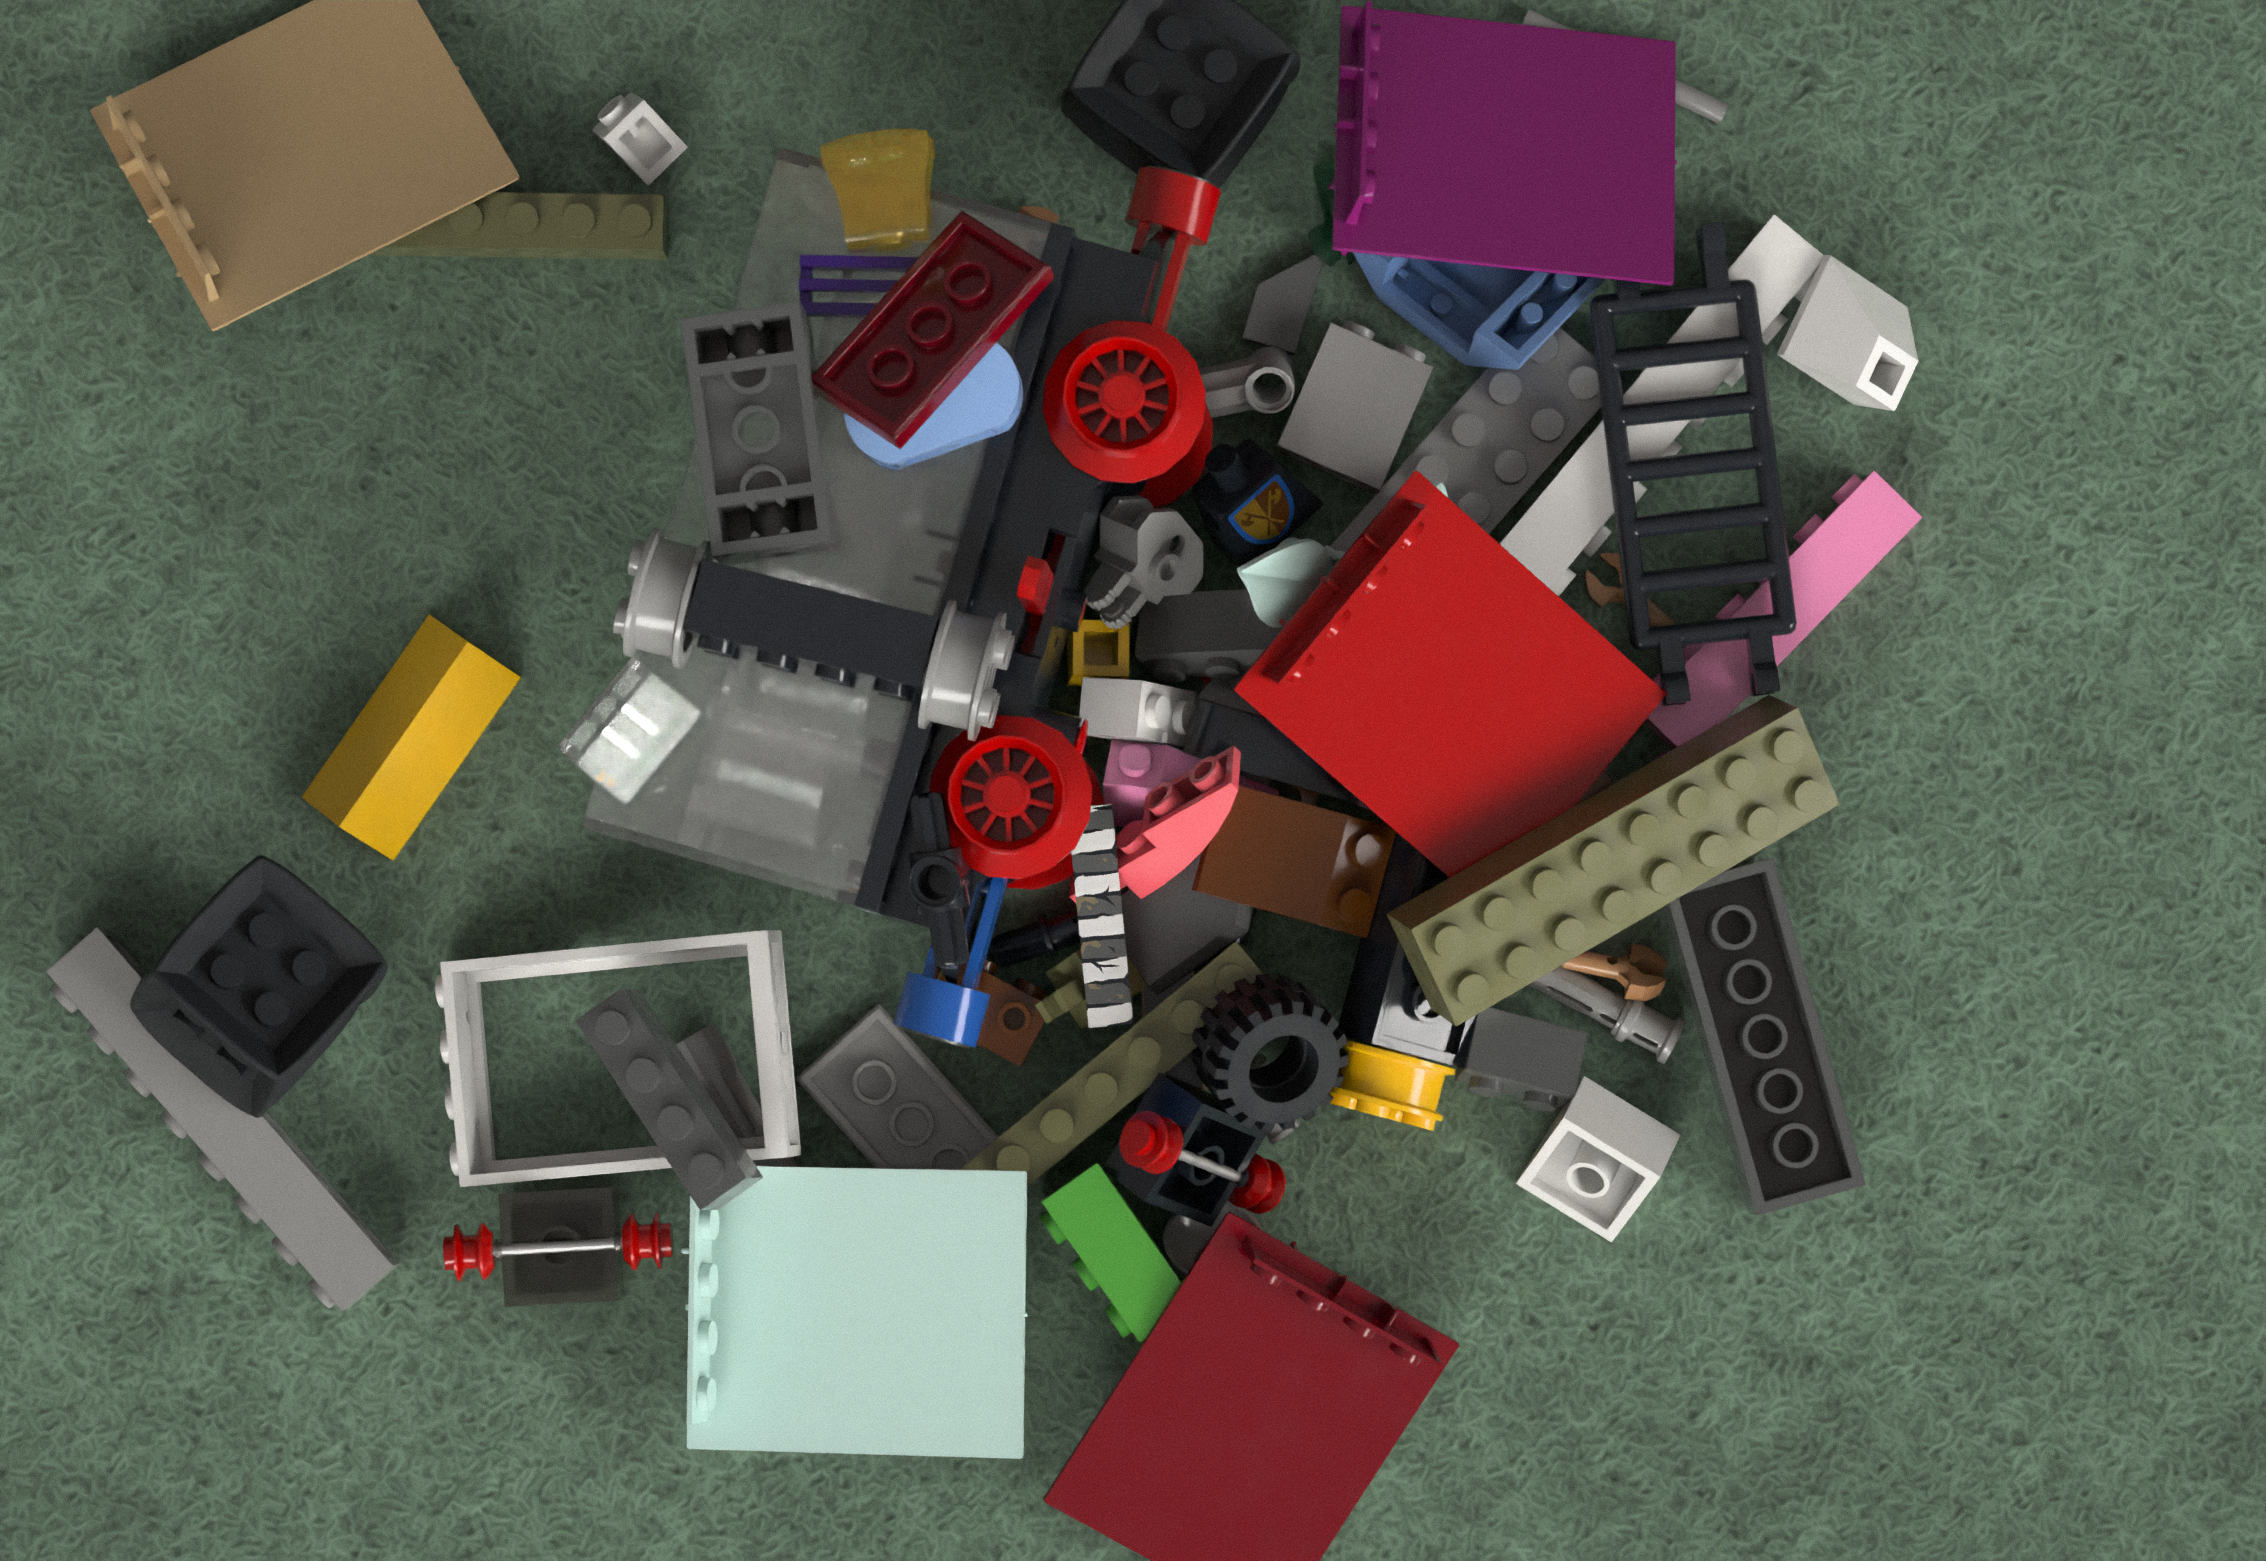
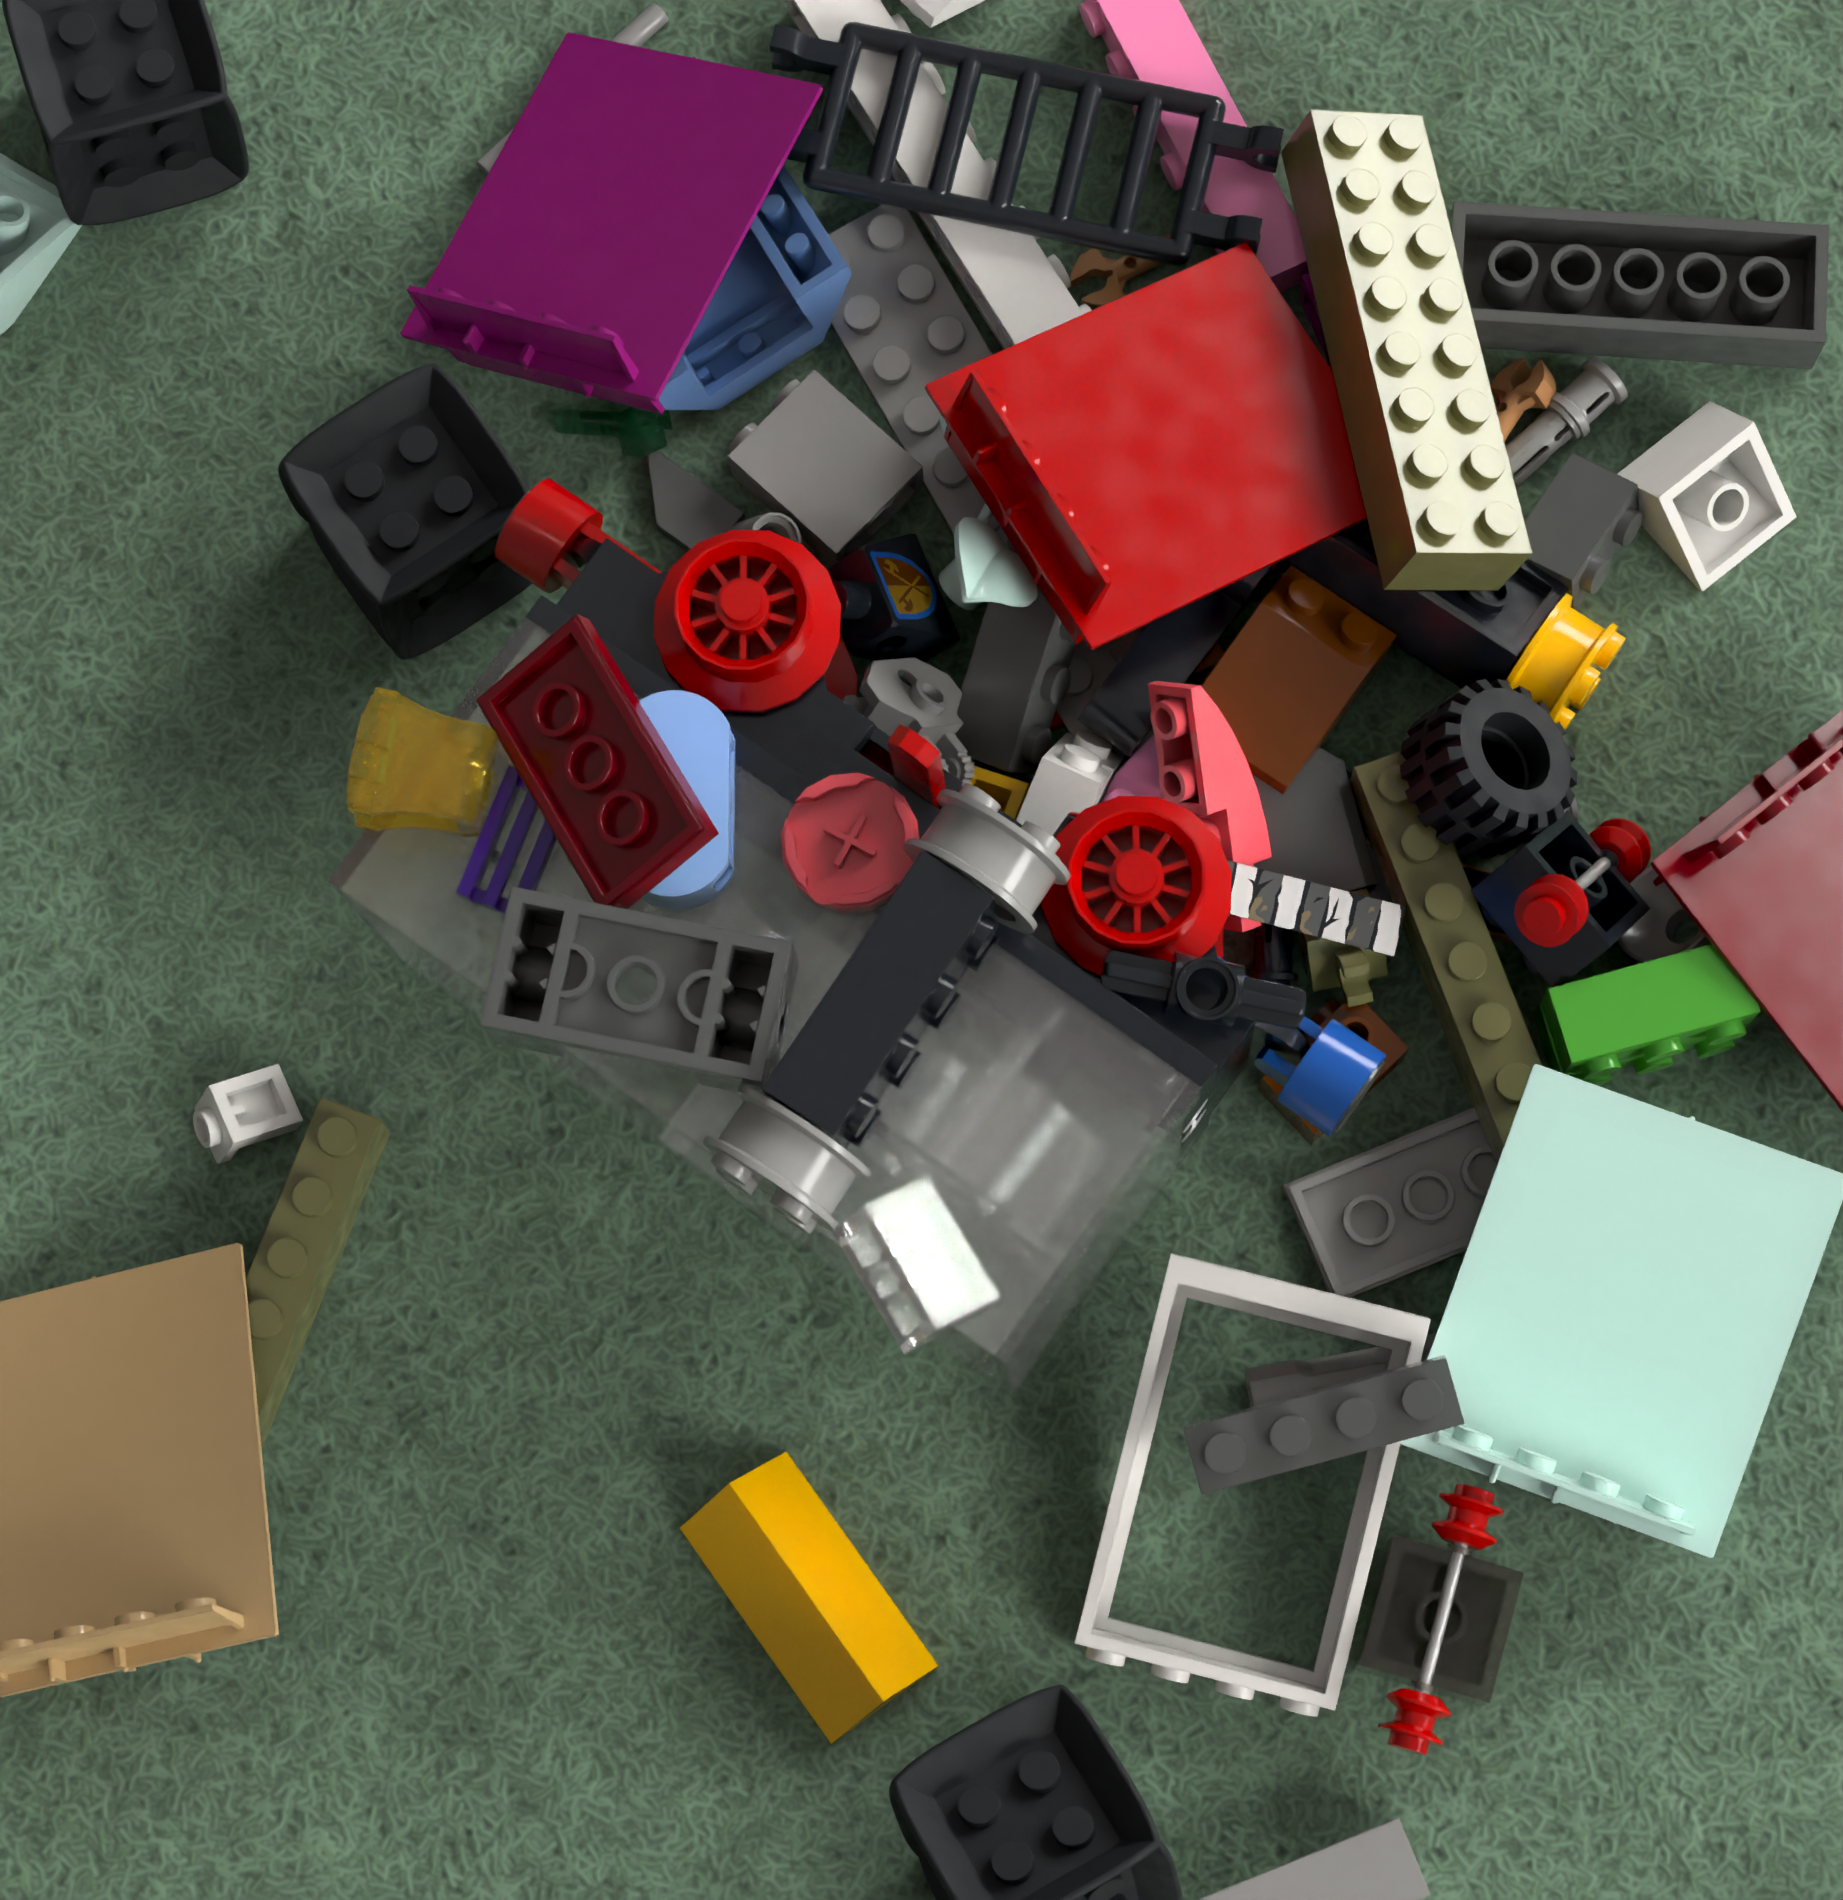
camera: 65 degrees left, 10 degrees down
(954, 553) = (848, 842): none -> coral tile

